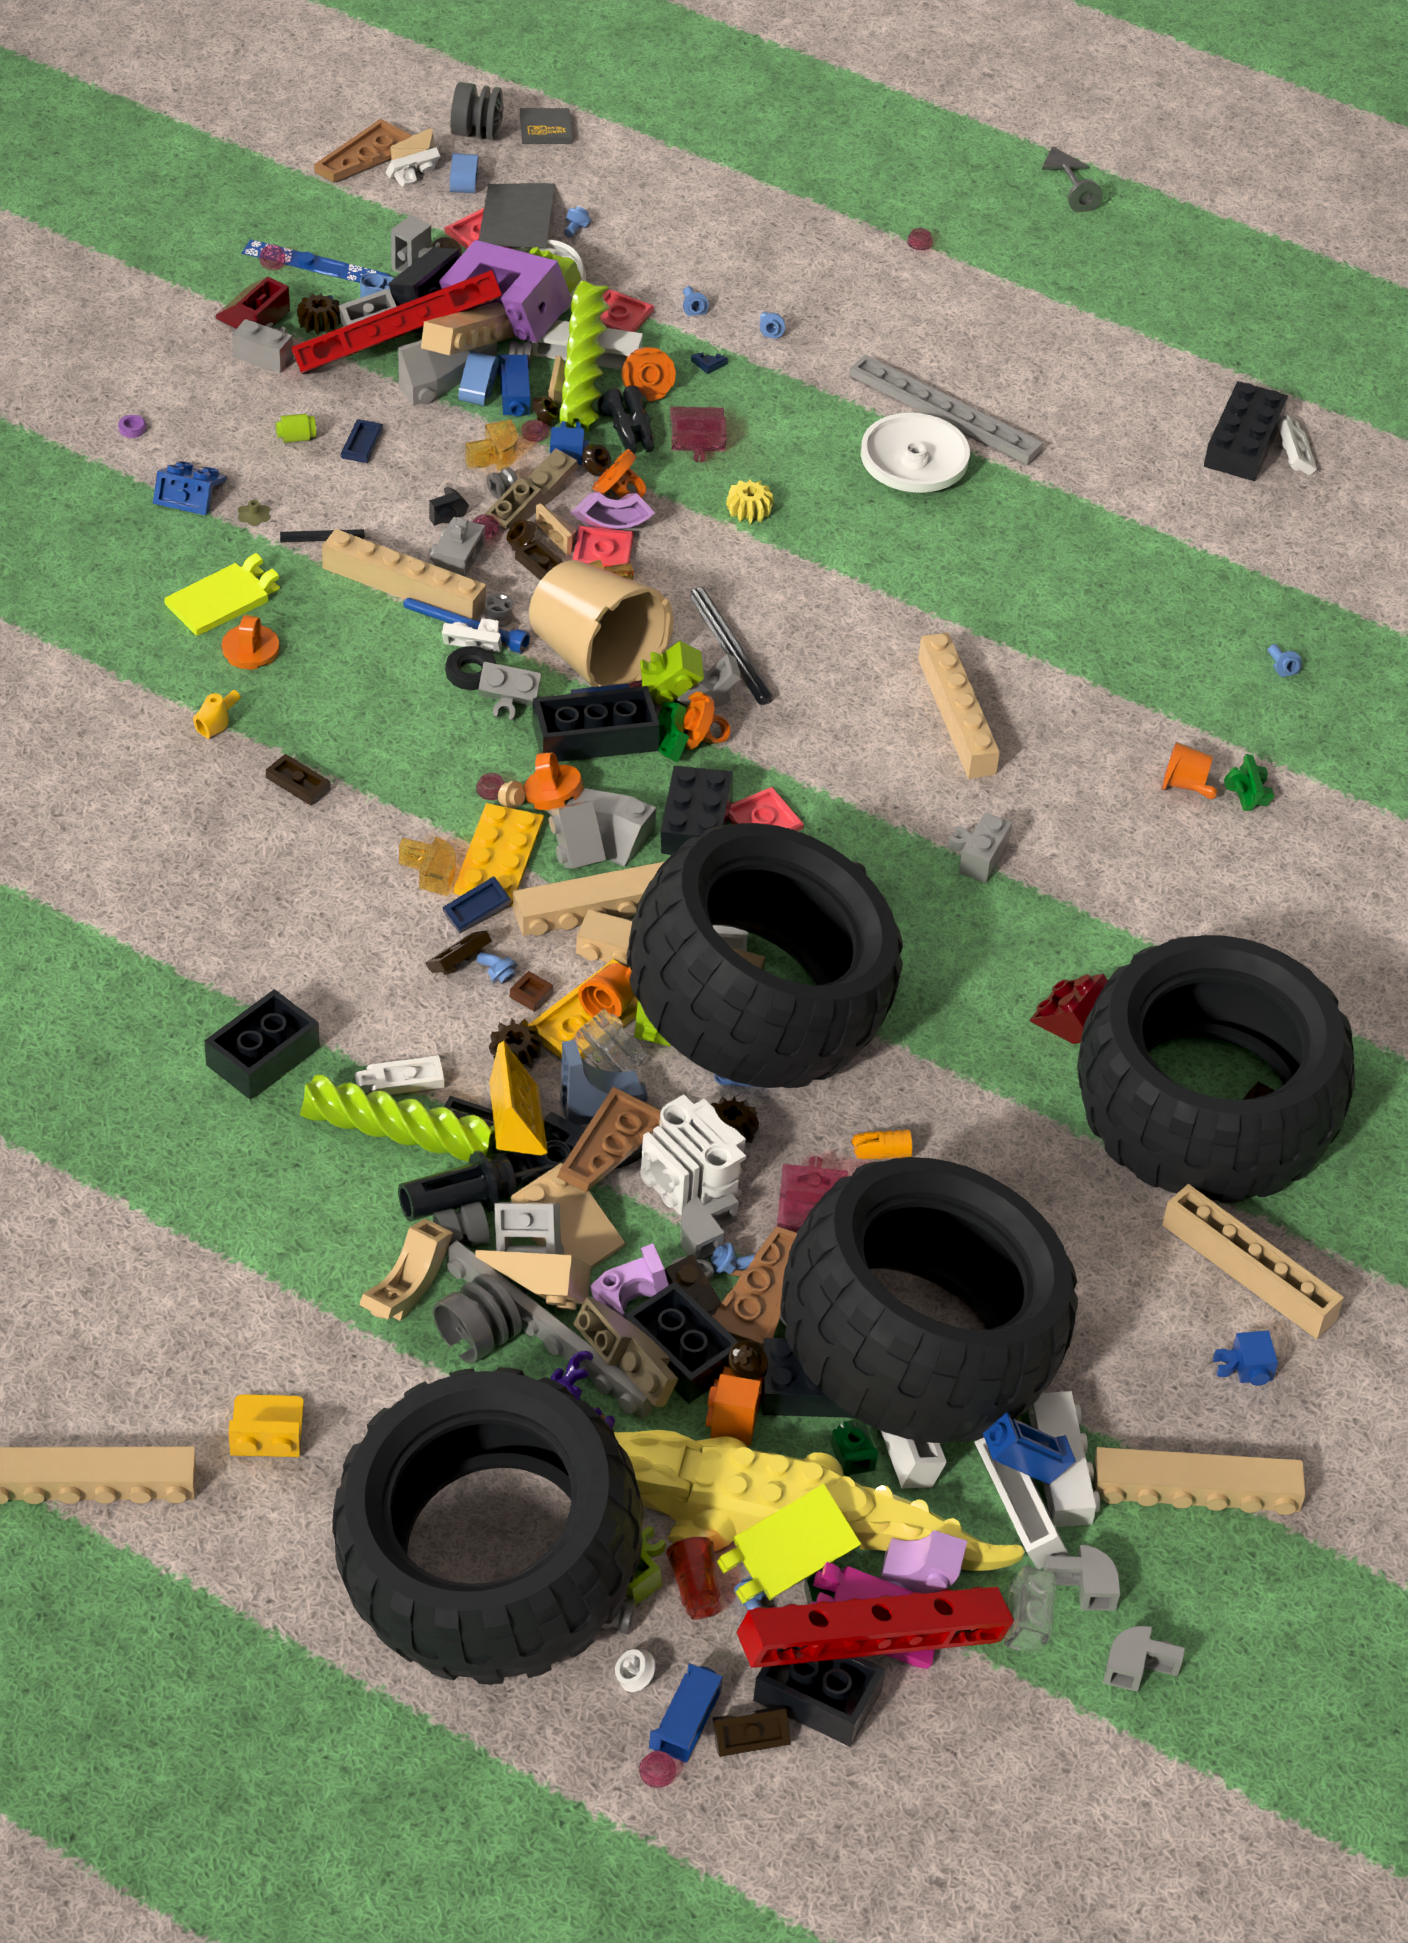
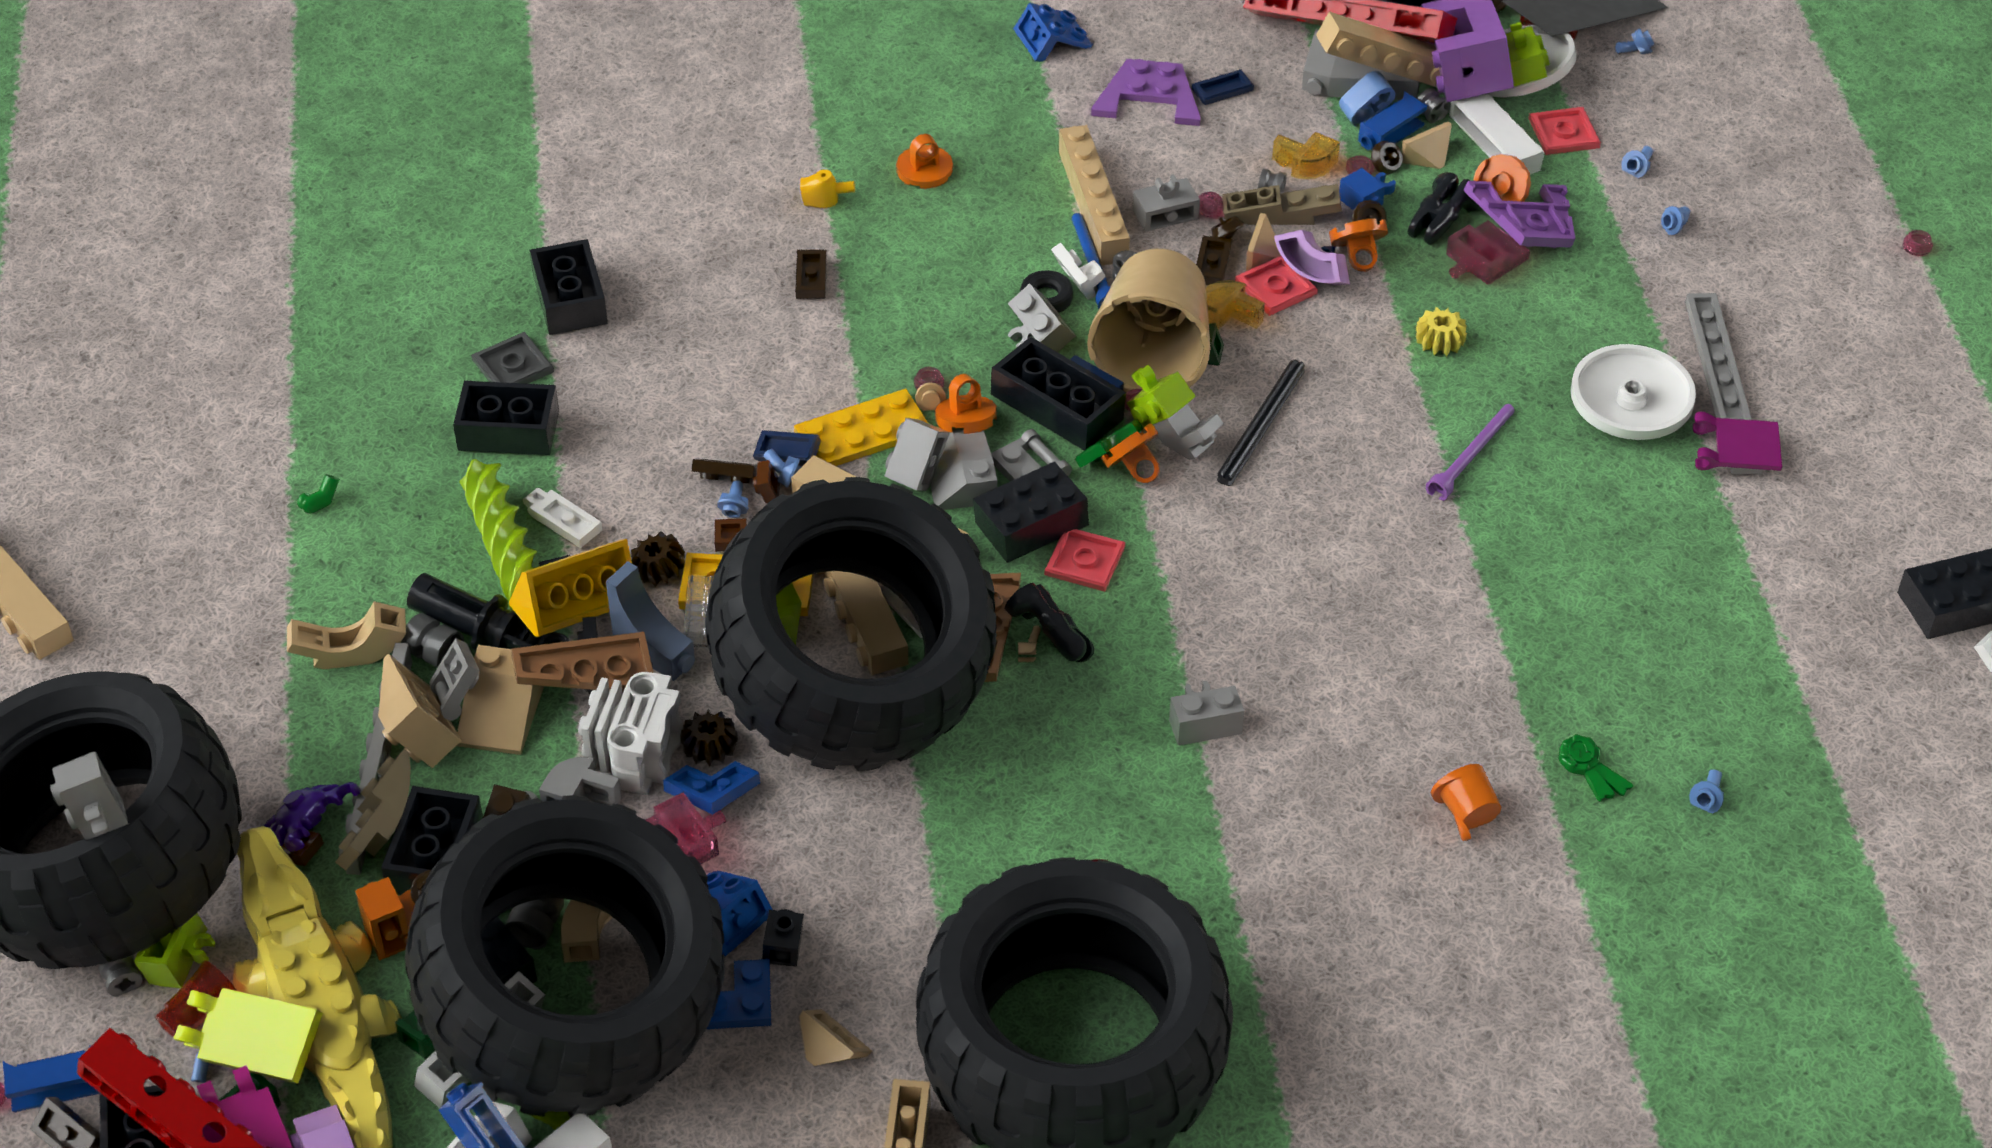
camera: 55 degrees right, 0 degrees up
(151, 922) = (568, 287): none -> black brick
(187, 1010) = (513, 361): none -> dark grey tile
(213, 1211) = (321, 498): none -> green arm
(223, 595) = (960, 120): neon yellow tile -> none
(254, 513) = (1071, 82): olive plant -> none
(266, 1426) = (139, 651): yellow bracket -> none
(296, 428) = (1185, 44): lime brick -> none
(312, 536) = (1095, 132): black bar -> none
(315, 470) = (1149, 83): none -> medium lavender wing
(434, 862) = (803, 399): clear yellow brick -> none
(447, 506) = (1204, 171): black plate -> none
(478, 1314) = (336, 702): flat silver wheel -> none
(502, 937) = (766, 481): none -> reddish brown plate
(505, 919) = (785, 469): none -> medium blue plate
(578, 1462) = (88, 796): none -> light grey brick
(582, 353) = (1457, 133): lime piece -> none
(631, 1280) = (470, 773): lavender tile -> none
(635, 1669) = (72, 1020): white hat -> none
(649, 792) = (1015, 461): none -> light grey plate
(694, 386) = (1528, 222): none -> medium lavender wing
(709, 363) = (1581, 213): dark blue tile -> none
(790, 1148) = (713, 791): none -> blue plate
(883, 1144) = (786, 851): light orange hinge -> none
(890, 595) = (1444, 482): none -> medium lavender piece
(958, 705) = (1358, 599): tan brick -> none
(1016, 436) = (1739, 443): none -> magenta flag
(1081, 1228) = (828, 1040): none -> tan slope
(1200, 698) = (1582, 757): none -> green piece
(1248, 784) = (1503, 866): green hips -> none

